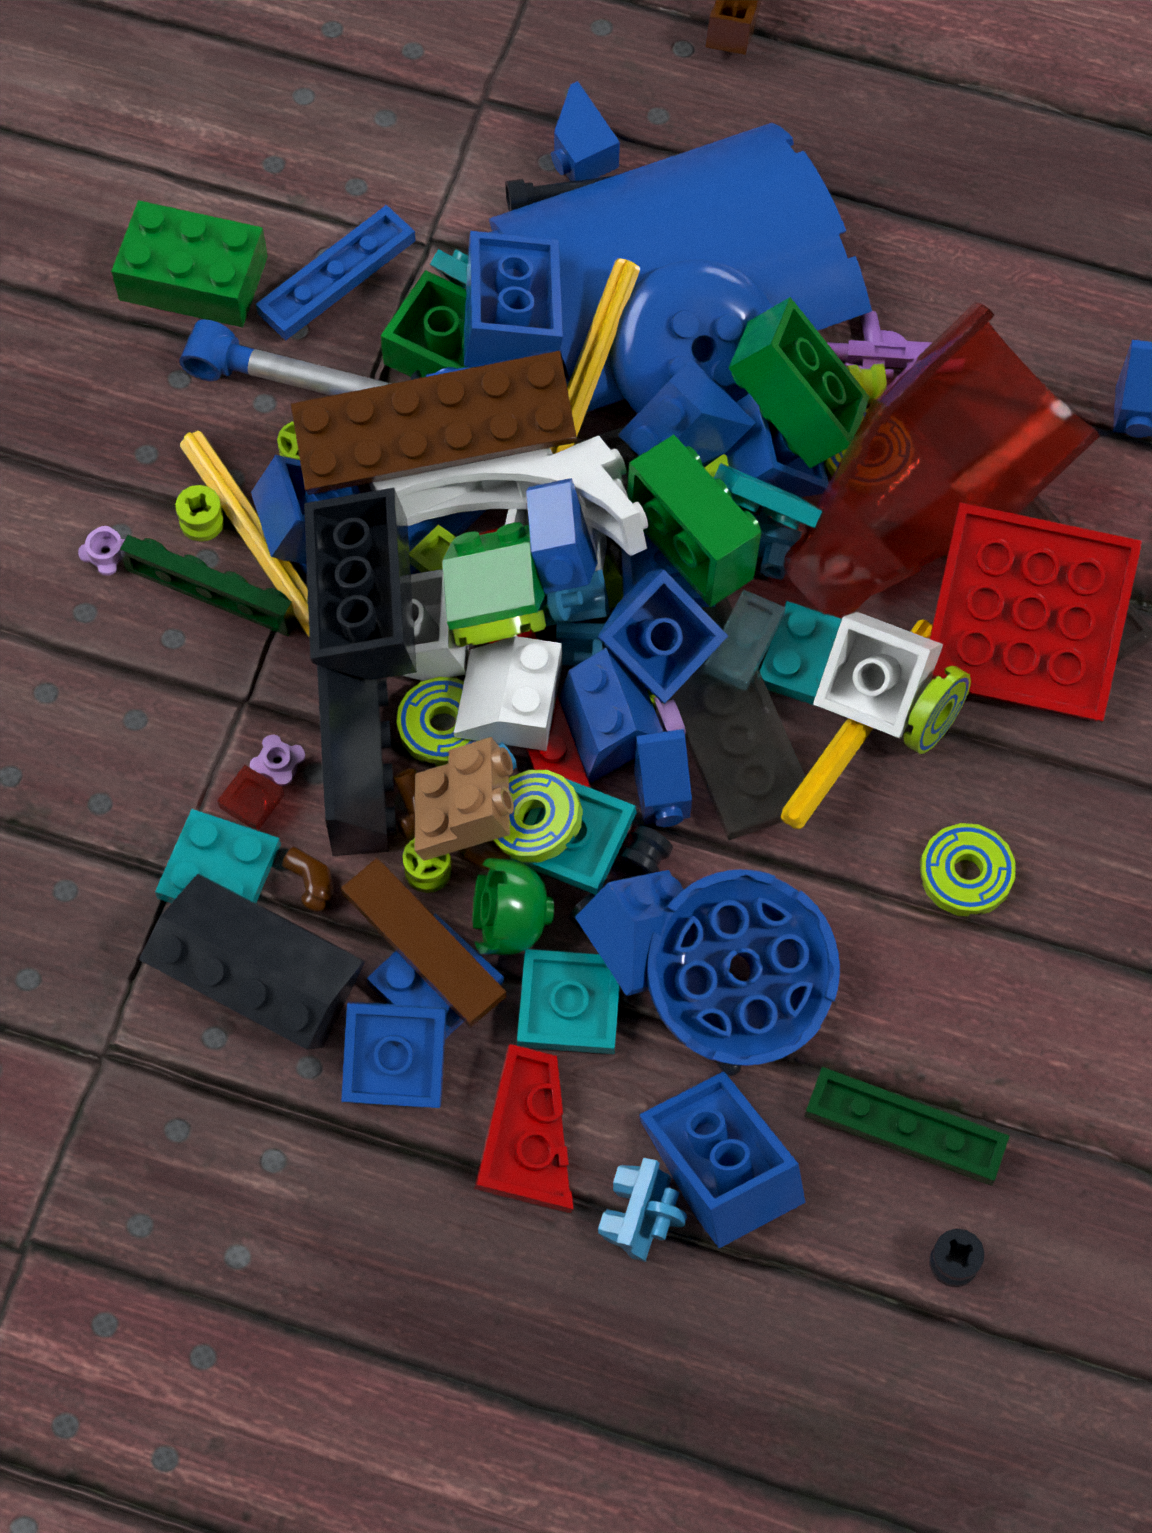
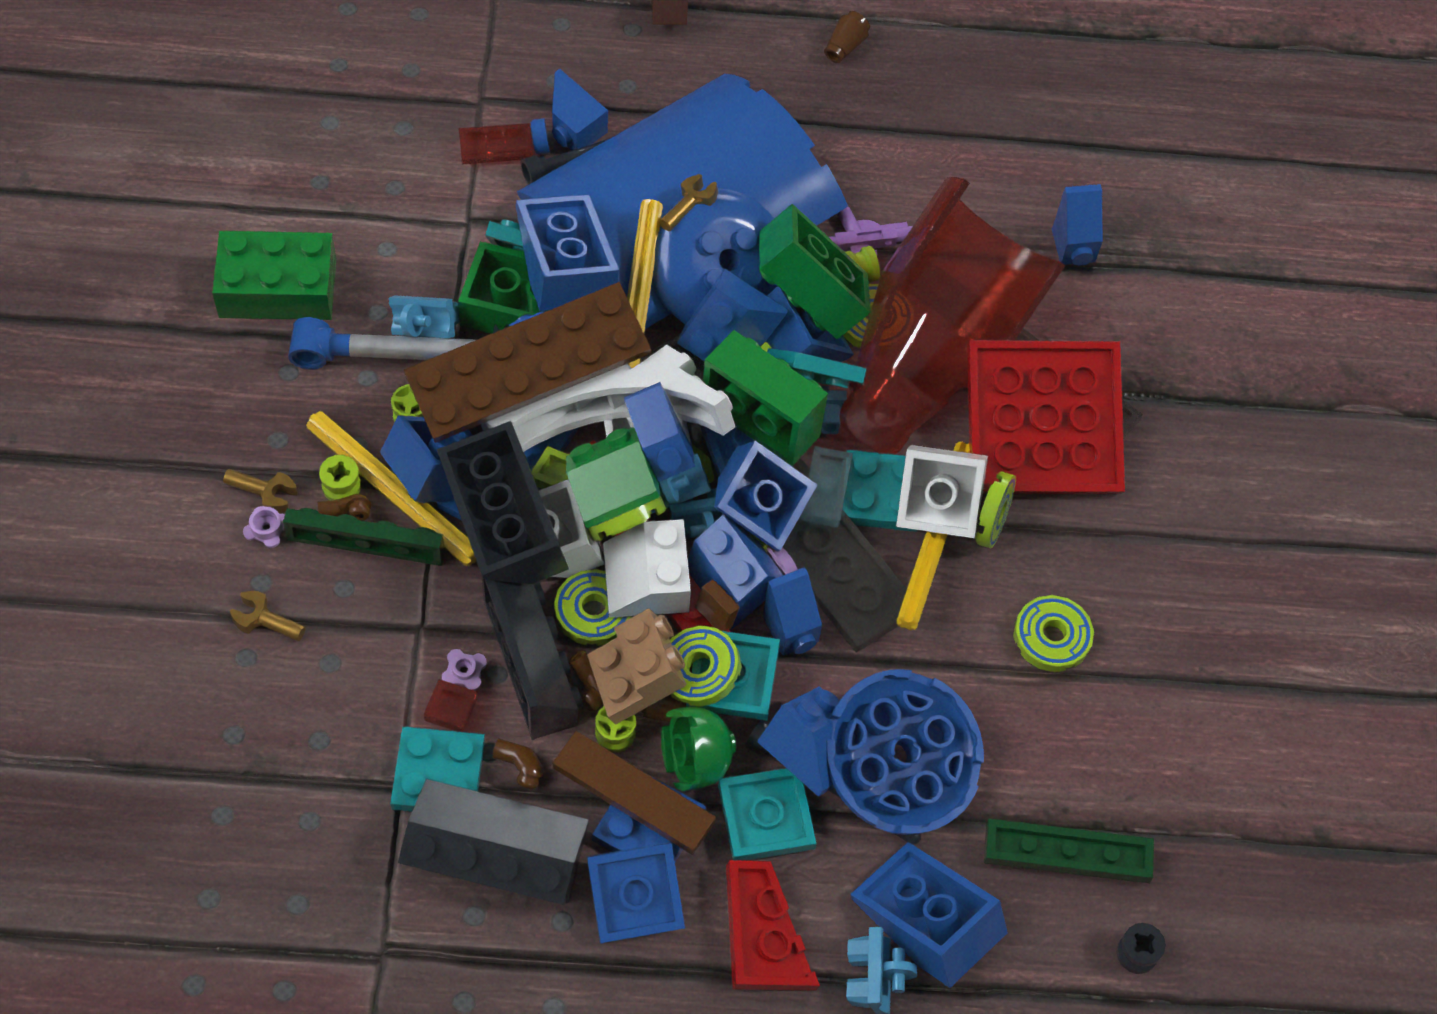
camera: 20 degrees left, 5 degrees down
(75, 651) = (263, 617): none -> pearl gold bar
(116, 507) = (265, 489): none -> pearl gold bar
(205, 547) = (354, 505): none -> reddish brown arm
(335, 272) = (399, 259): blue plate -> none
(341, 345) = (424, 316): none -> dark azure hips
(482, 156) = (495, 143): none -> clear red plate
(536, 158) = (540, 136): none -> blue tile
(576, 751) = (717, 606): none -> reddish brown tile
(643, 851) = (792, 677): black wheel -> none
(676, 267) = (692, 196): none -> pearl gold bar
(935, 102) = (847, 35): none -> reddish brown cone

